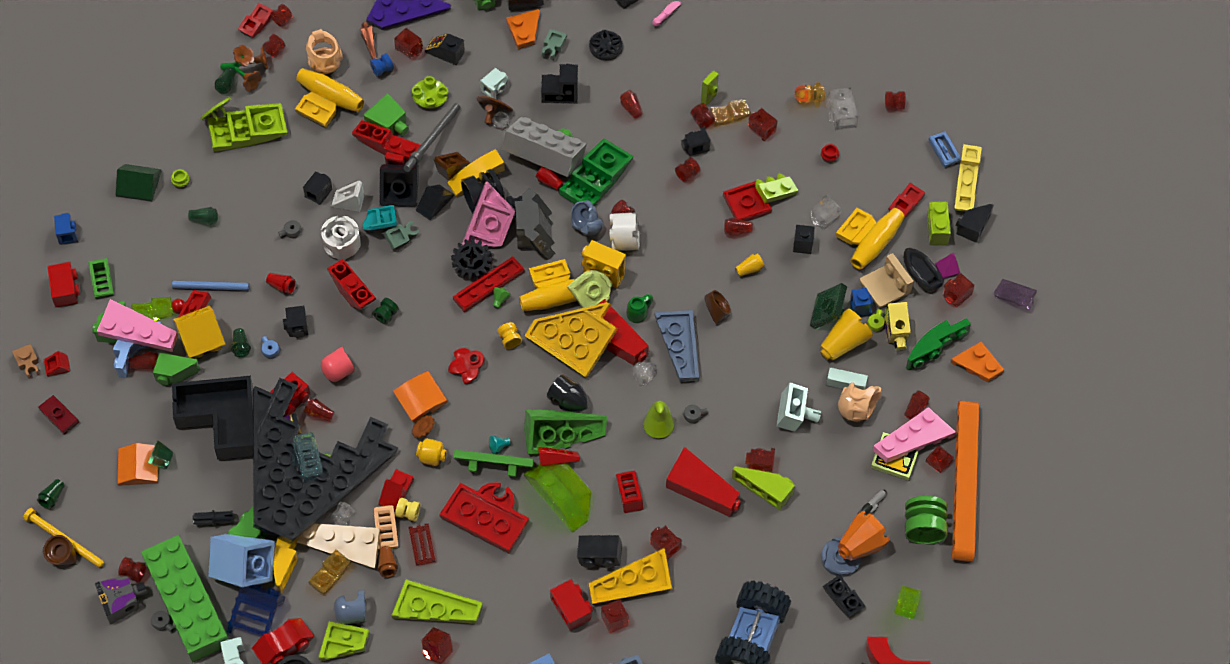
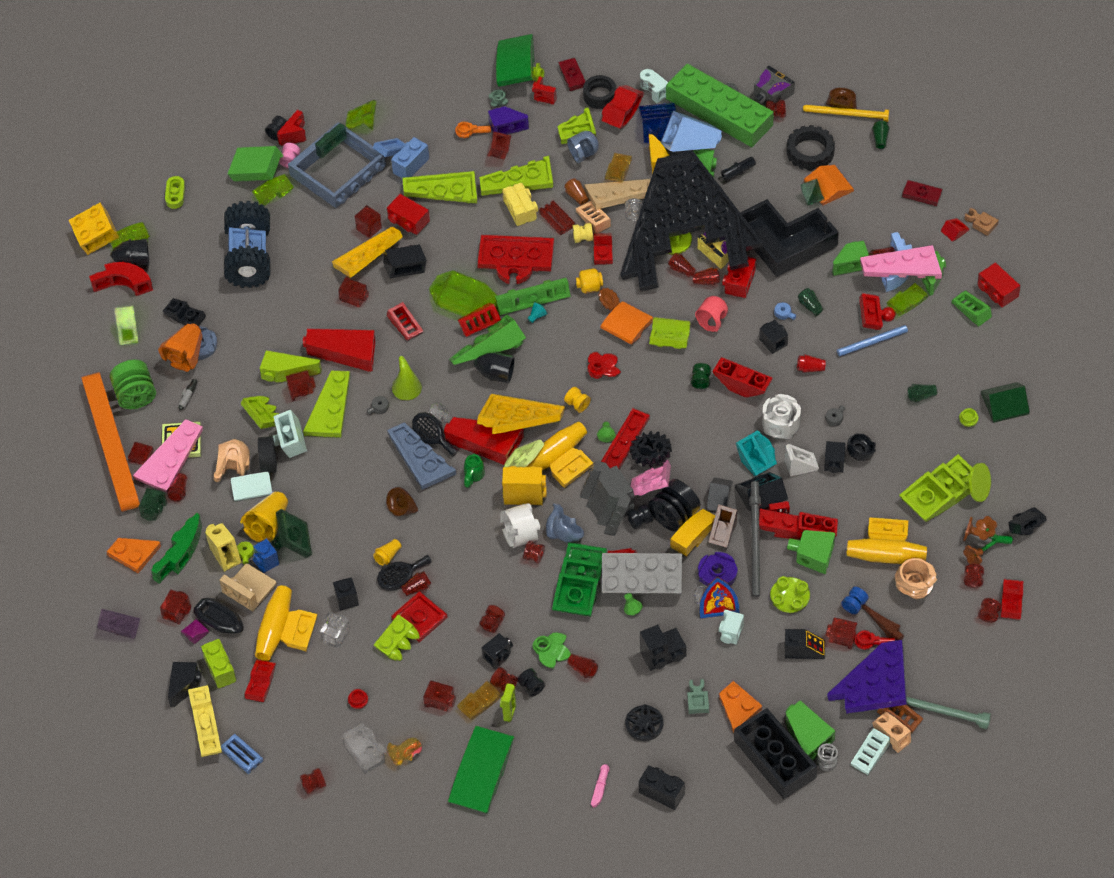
camera: 160 degrees right, 5 degrees down
(65, 229) = (1034, 329): blue brick -> none
(120, 493) = (810, 133): none -> black tyre
(199, 332) = (848, 285): yellow brick -> none
(200, 68) = (1026, 522): none -> black piece
(224, 82) = (997, 516): clear green cone -> none
(290, 184) = (860, 447): none -> black hair
(308, 438) = (695, 223): clear light blue slope -> none
(334, 432) = (681, 265): none -> clear red cone
(389, 362) = (670, 333): none -> lime bracket
(390, 32) = (865, 640): none -> red plate
(398, 235) = (729, 447): sand green plate -> none
(451, 570) = (520, 204): none -> light yellow brick
(479, 144) = (718, 560): none -> dark purple plate
(509, 626) = (448, 187): none -> lime wing
(647, 129) = (553, 651): none -> bright green plate
(657, 357) = (439, 438): none -> black piece
(681, 107) = (531, 682): none -> black wheel
(741, 429) = (330, 407): none -> lime wing
(751, 236) = (395, 565): none -> black piece
(754, 55) = (481, 769): none -> green slope
(809, 449) = (260, 411): none -> lime plate
(822, 392) = (267, 454): none -> black tyre
(946, 396) = (152, 504): none -> clear green brick

